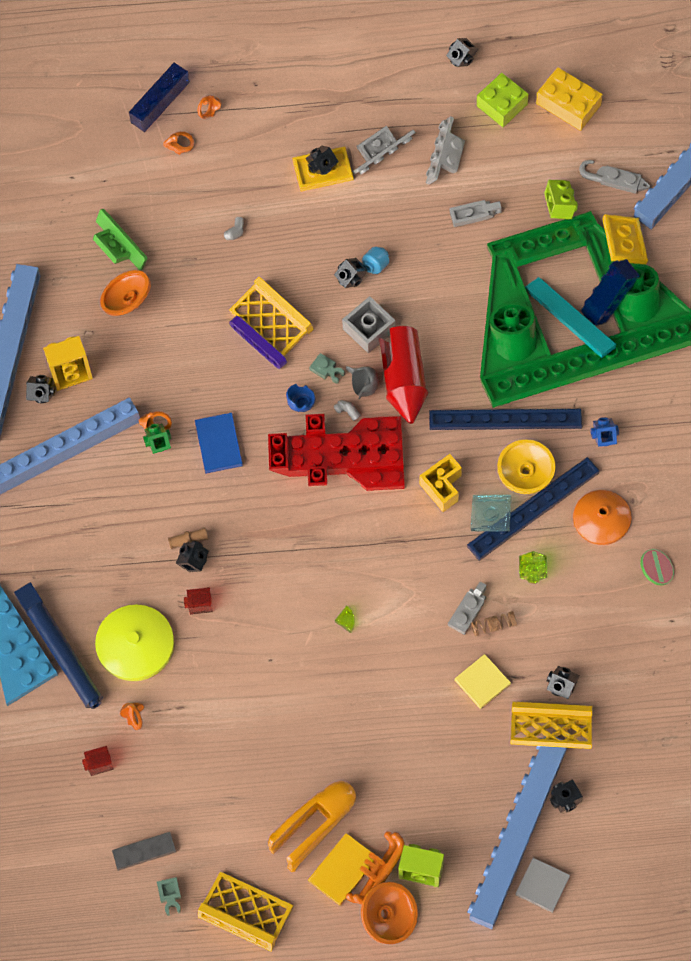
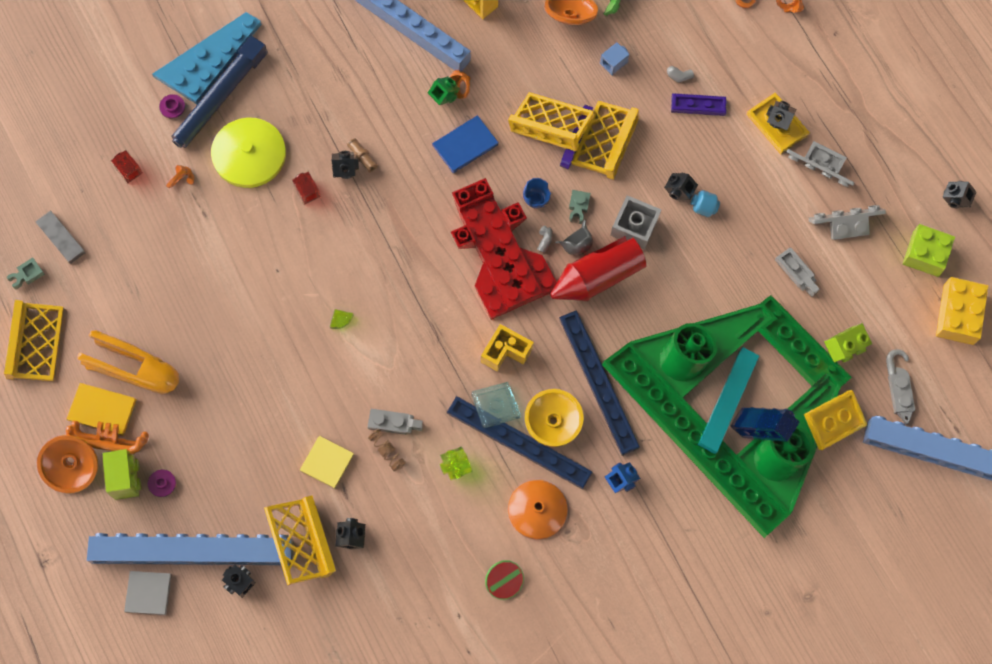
camera: 60 degrees right, 5 degrees up
(50, 697) = (172, 106): none -> magenta piece
(193, 277) = (614, 58): none -> medium blue brick
(232, 377) = (545, 131): none -> yellow fence
(272, 226) = (698, 104): none -> dark purple tile
(441, 836) = (161, 483): none -> magenta piece

